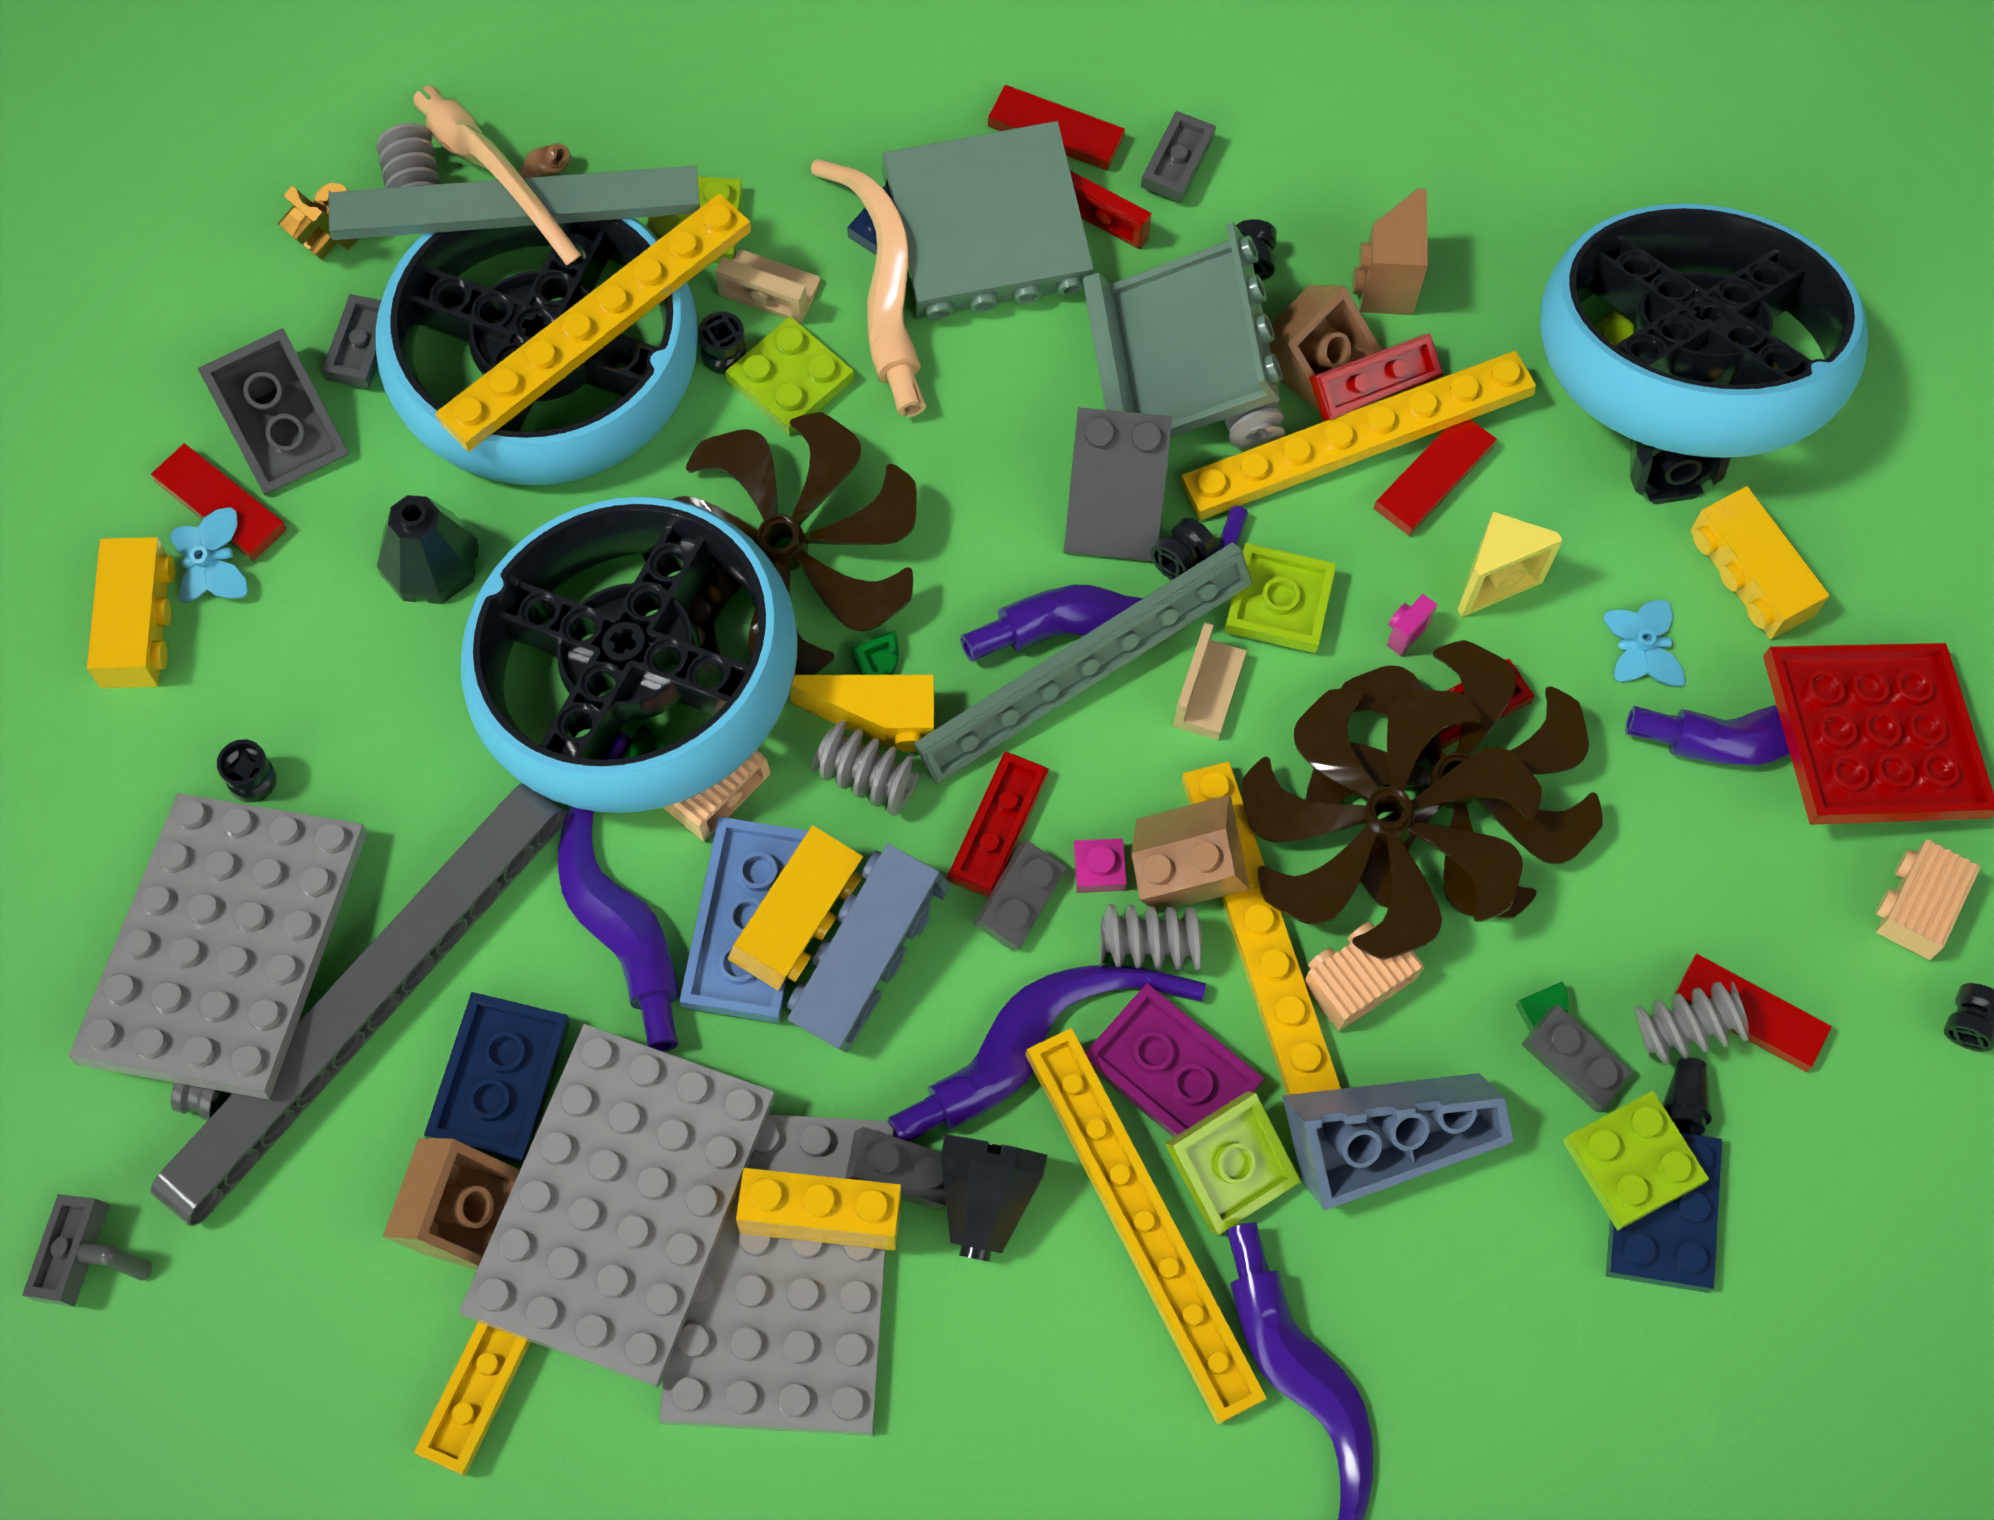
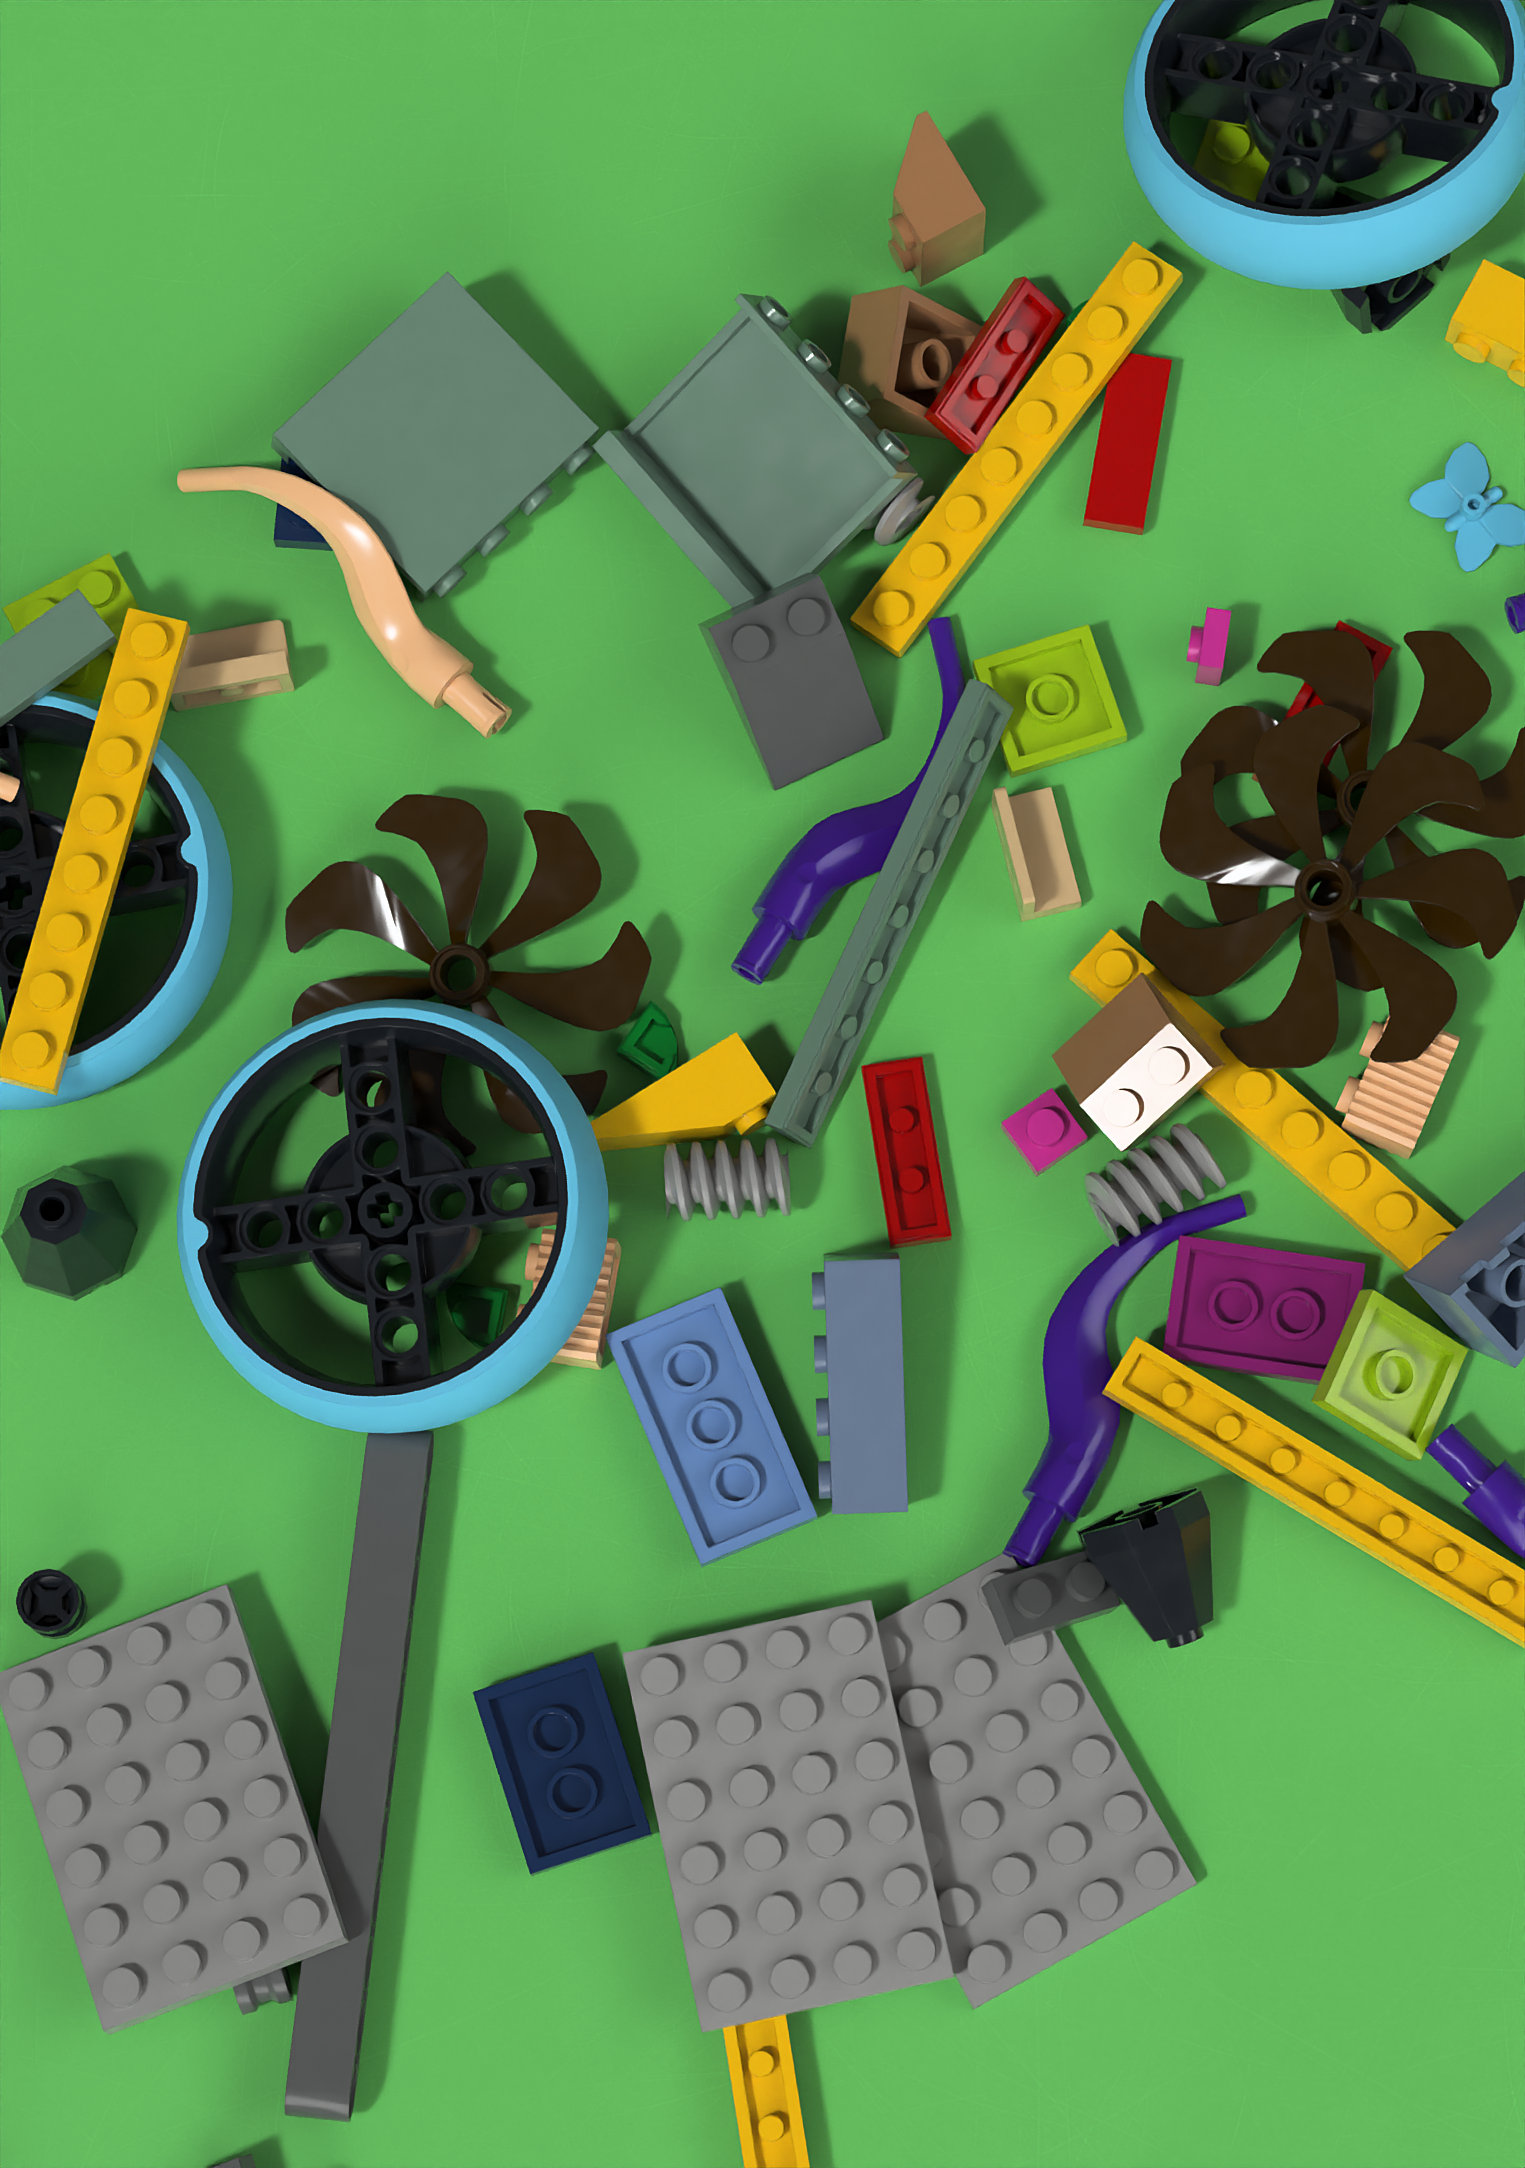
camera: 25 degrees left, 10 degrees up
(450, 1201) = (610, 1924): medium nougat slope -> none
(620, 922) = (577, 1518): dark purple animal -> none
(721, 341) = (234, 785): black wheel -> none
(789, 374) = (328, 764): lime plate -> none
(797, 909) = (765, 1387): yellow brick -> none
(819, 1209) = (1003, 1693): yellow brick -> none
(1019, 895) = (982, 1220): dark grey plate -> none
(1082, 134) = (416, 259): red tile -> none
(1111, 212) = (566, 336): red tile -> none
(1178, 156) = (597, 215): dark grey plate -> none
(1188, 545) = (910, 710): black wheel -> none
(1261, 231) = (757, 274): black wheel -> none
(1507, 562) = (1269, 513): light yellow slope -> none

